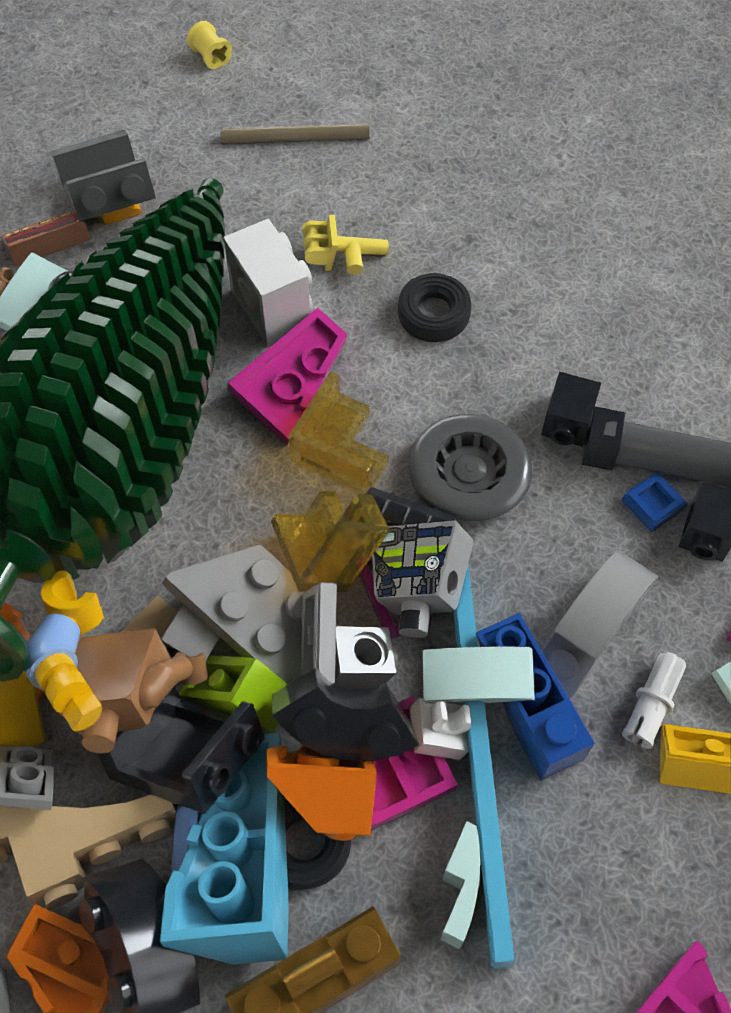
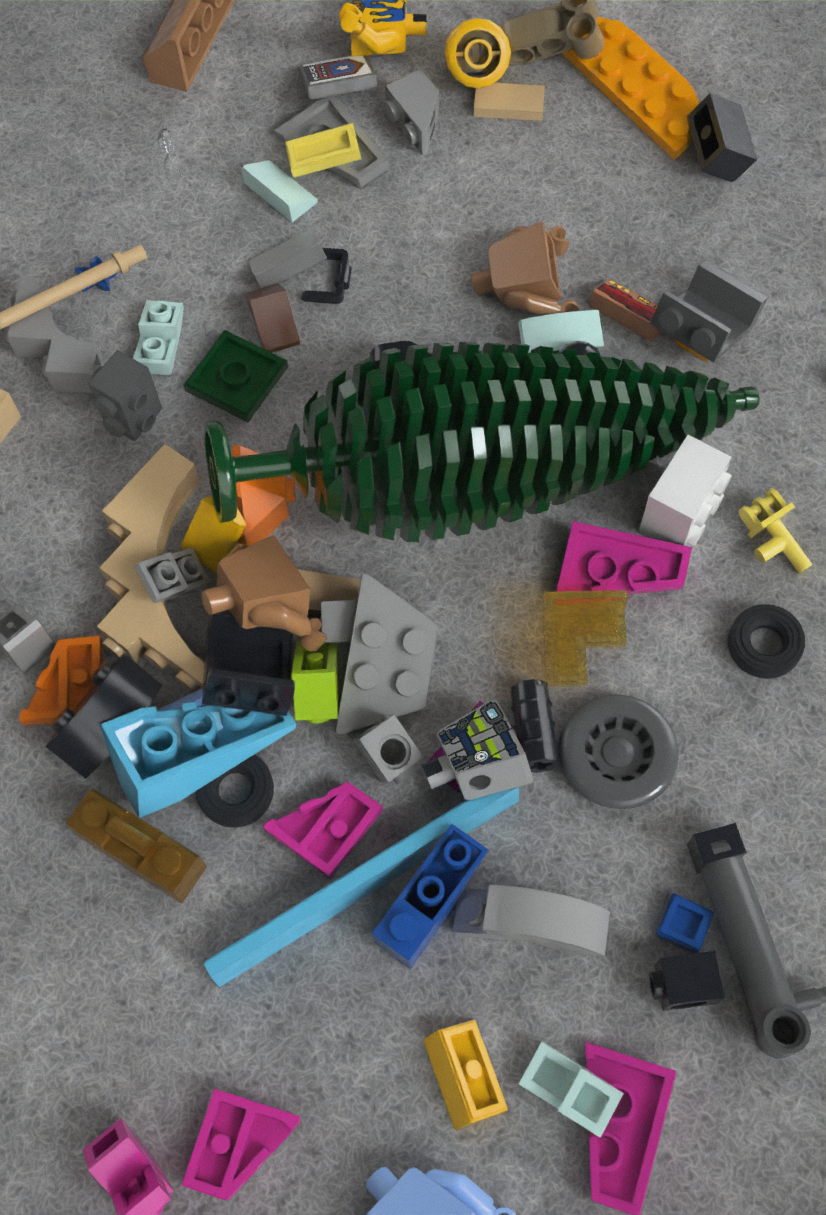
camera: 65 degrees right, 5 degrees up
(54, 646) = (259, 530): yellow piece -> none
(319, 630) = (384, 709): light grey tile -> none
(326, 791) = (272, 774): orange slope -> none
(330, 542) = (469, 672): clear yellow panel -> none
(343, 720) = (321, 760): black brick -> none
(441, 728) = (363, 837): white tile -> none
(464, 874) = (239, 925): light aqua slope -> none
(478, 674) = (412, 841): light aqua slope -> none
(570, 409) = (728, 803): black brick -> none
(654, 700) = (489, 1002): white axle -> none

